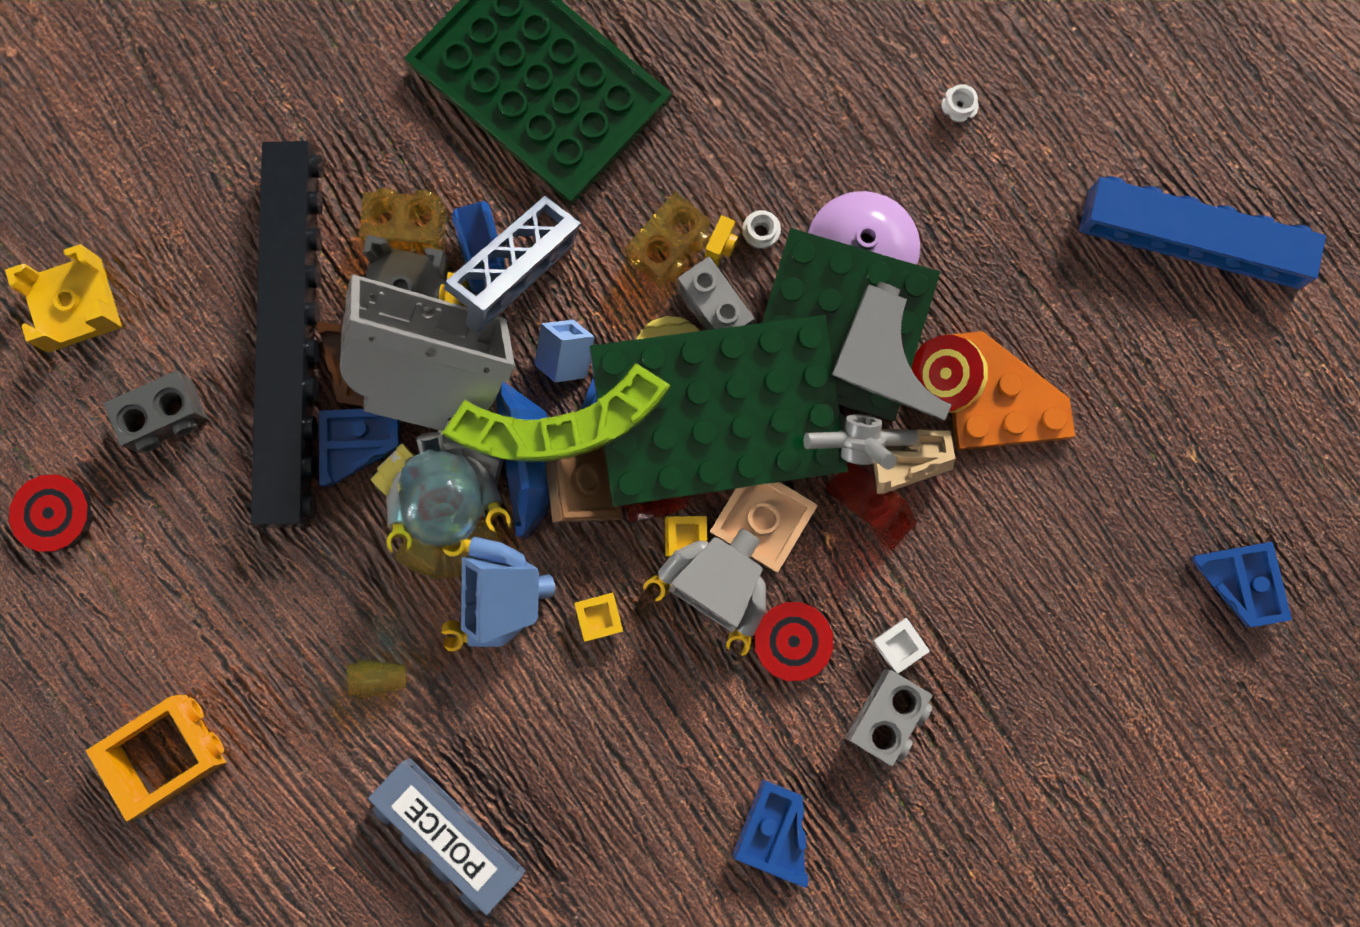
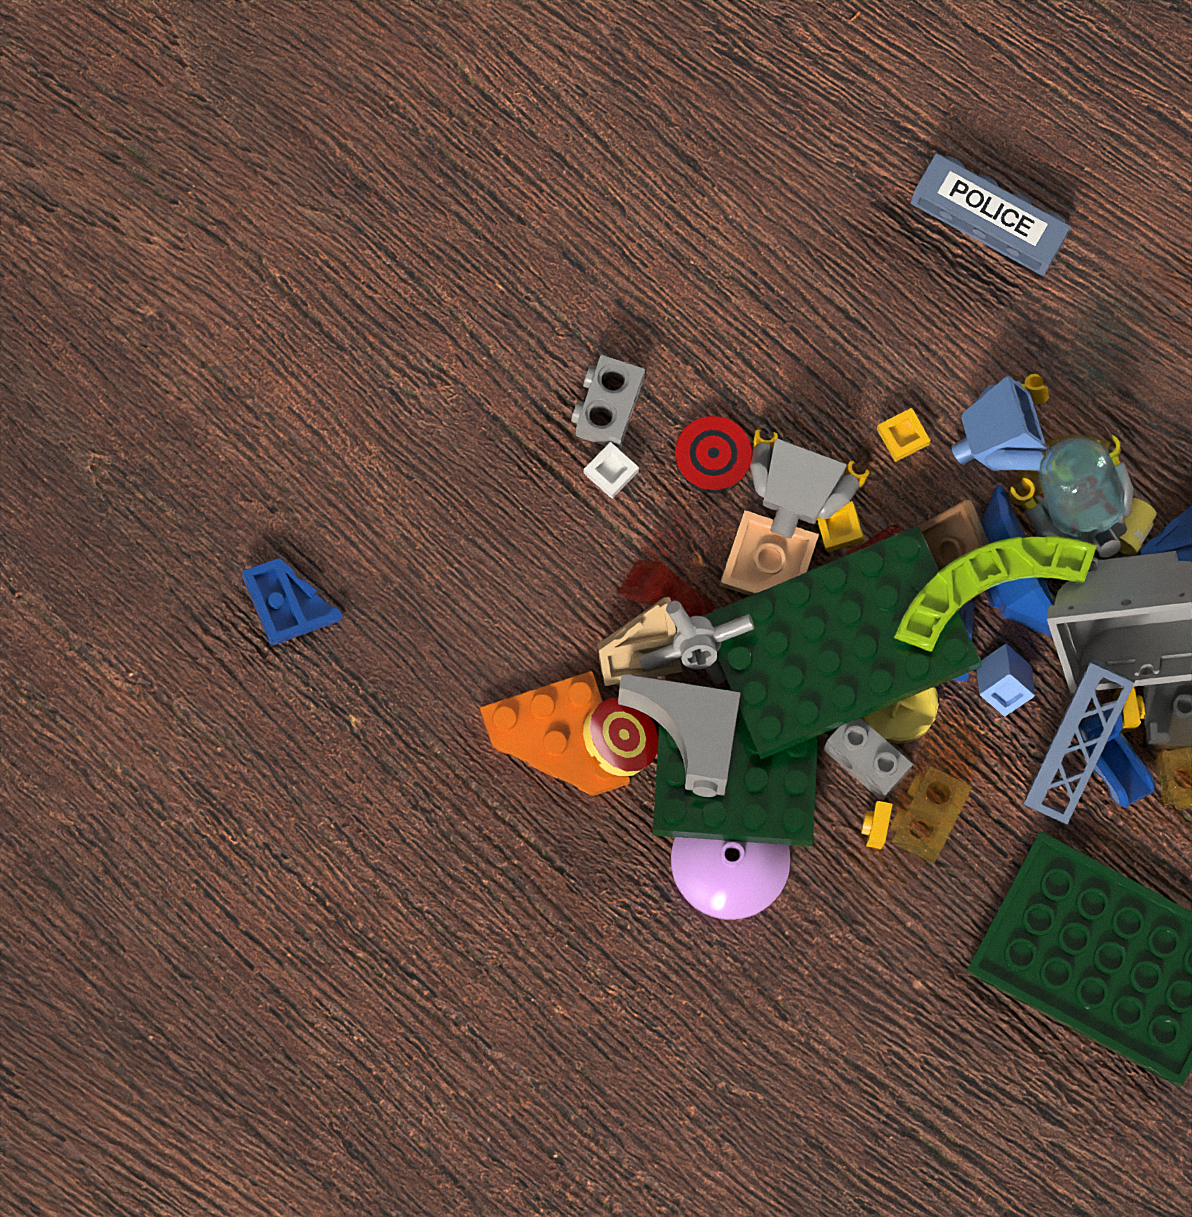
camera: 165 degrees right, 5 degrees down
(374, 678) = (1097, 335): clear yellow cone -> none
(765, 219) = (847, 842): white plate -> none
(774, 834) = (692, 278): blue wing -> none
(963, 94) = (672, 1029): white plate -> none
(1202, 232) = (388, 944): blue brick -> none

